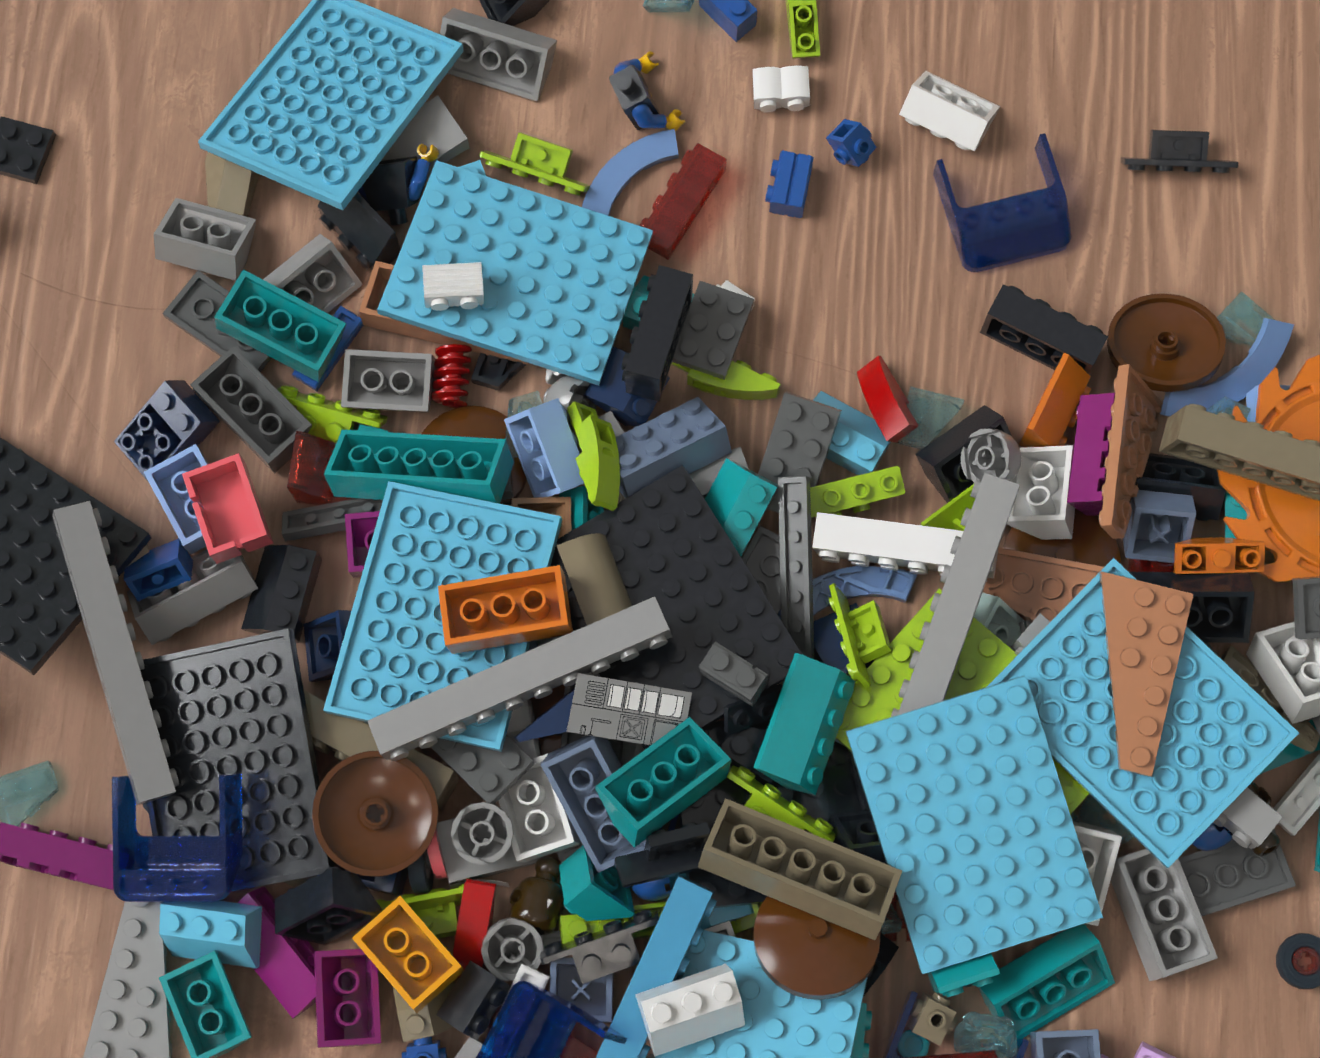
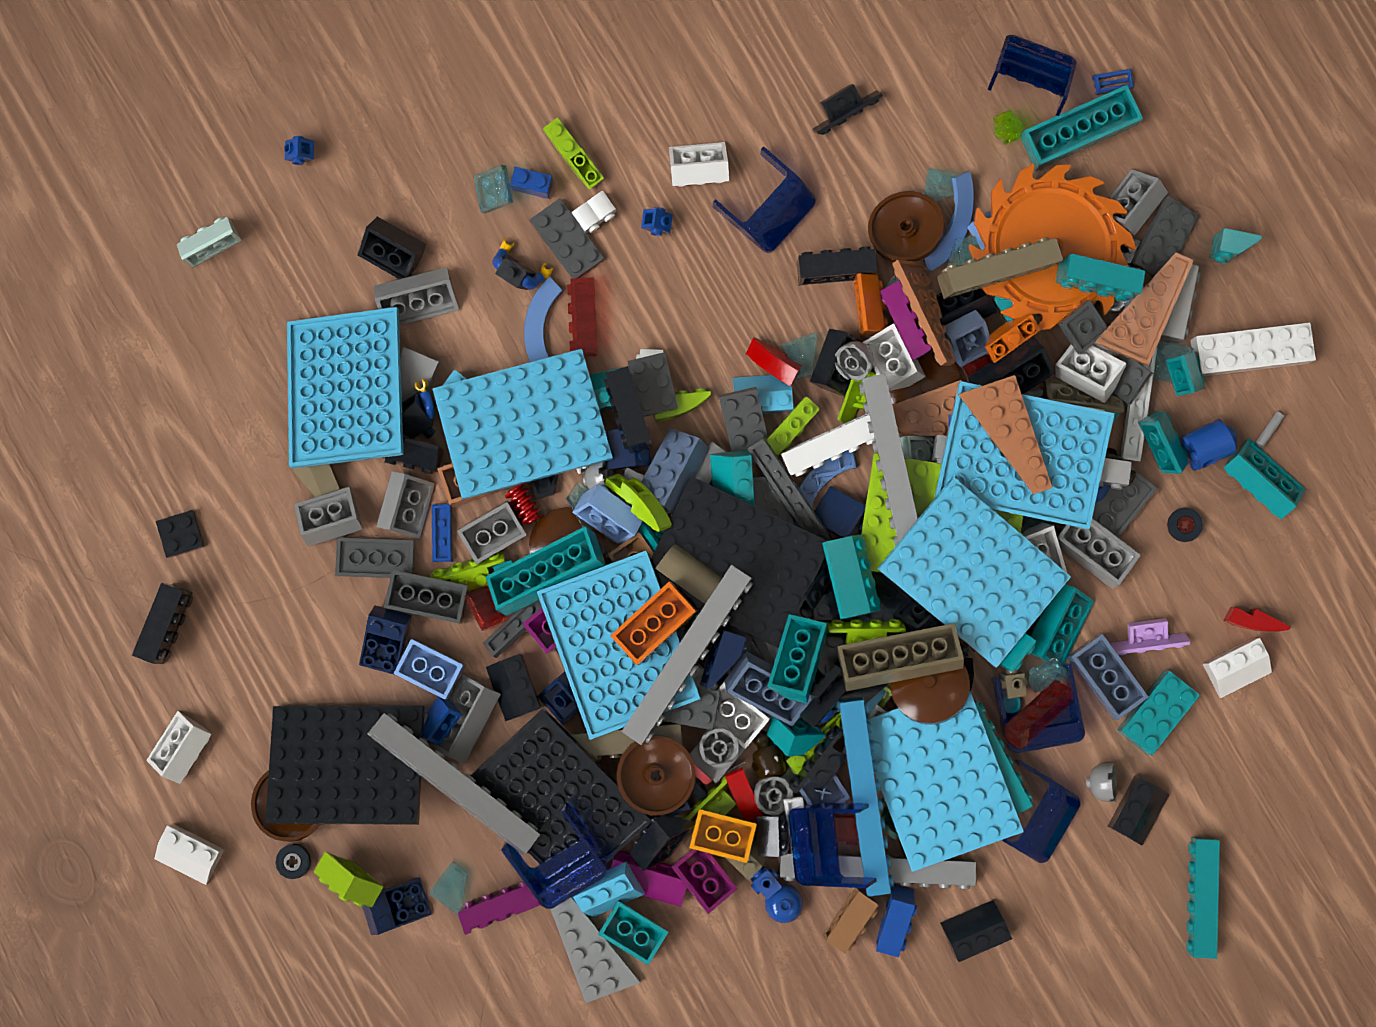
camera: 35 degrees left, 10 degrees up
(231, 508) = (459, 664): coral piece -> none
(280, 325) = (410, 540): teal slope -> none
(453, 285) = (496, 458): white brick -> none
(539, 159) = (485, 346): lime bracket -> none
(625, 709) = (754, 633): light grey sticker -> none
(691, 1009) = (890, 766): white slope -> none
(725, 100) = (566, 239): none -> dark grey plate
(734, 674) = (797, 576): dark grey brick -> none
(790, 185) = (637, 267): blue brick -> none
(862, 634) = (847, 504): lime bracket -> none

